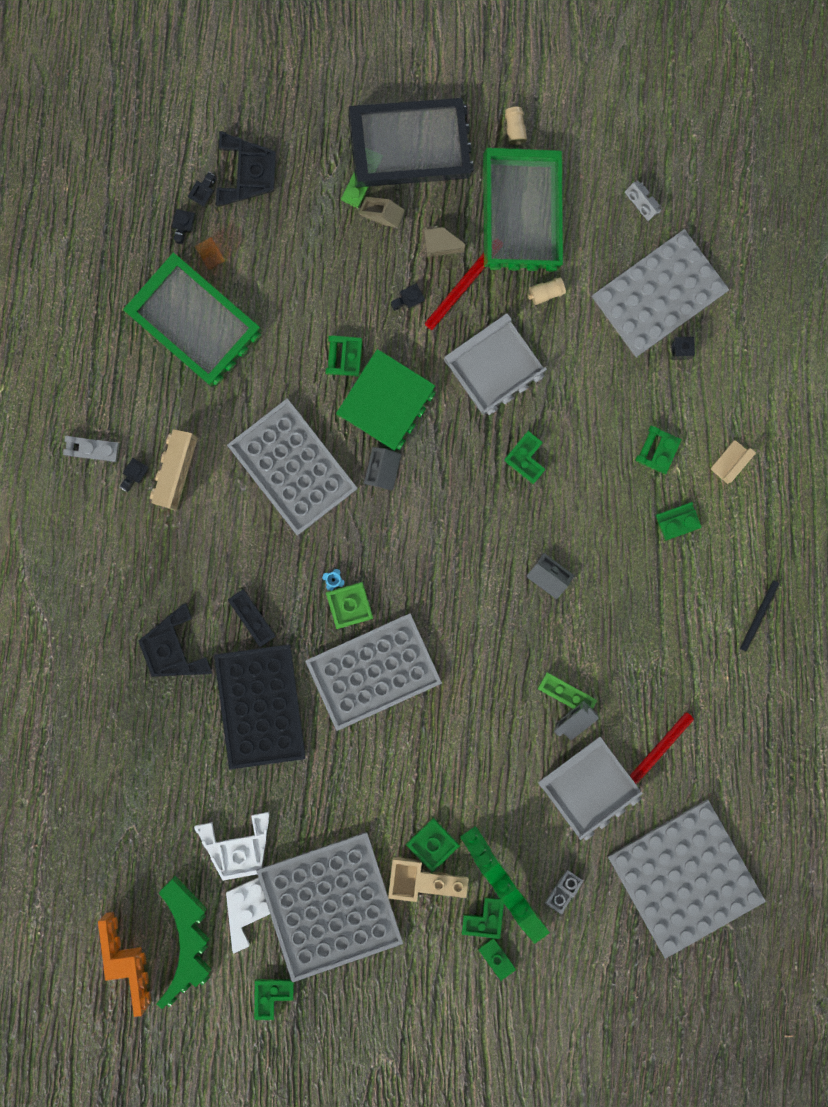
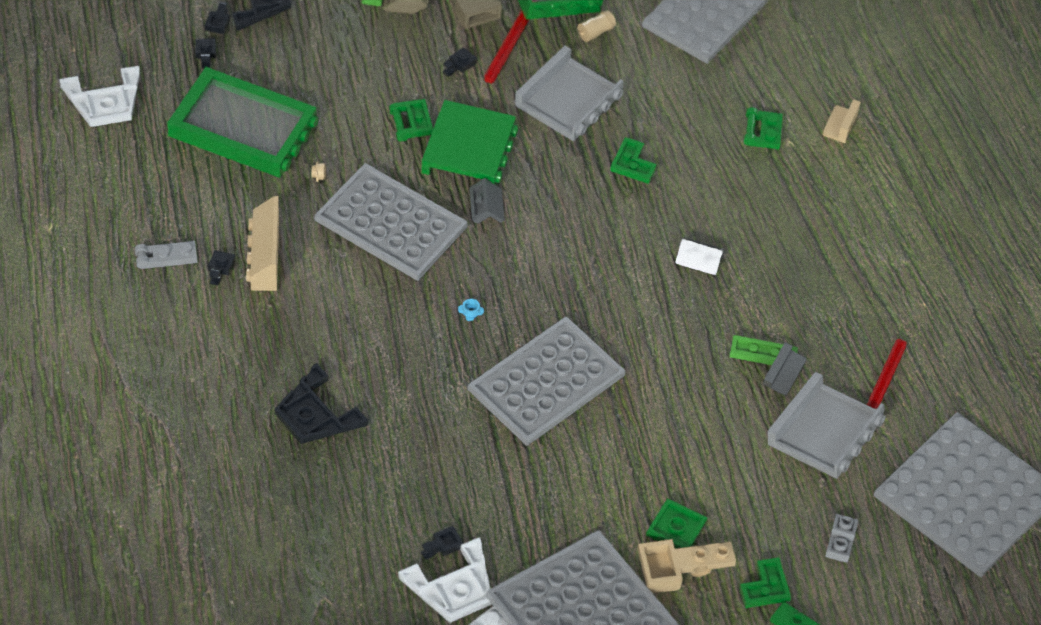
camera: 20 degrees left, 35 degrees down
(79, 266) = (104, 104): none -> white wing
(210, 253) = (242, 65): clear orange panel -> none
(241, 806) = (445, 541): none -> black plate
(245, 394) = (319, 171): none -> tan plate
(251, 618) = (394, 362): black plate -> none
(260, 706) = (432, 442): black plate -> none
(349, 605) = (497, 327): bright green plate -> none
(504, 885) = (778, 529): green arch -> none
(678, 521) = (810, 182): green plate -> none
(682, 348) = (750, 41): black brick -> none
(759, 616) = (930, 244): black bar -> none

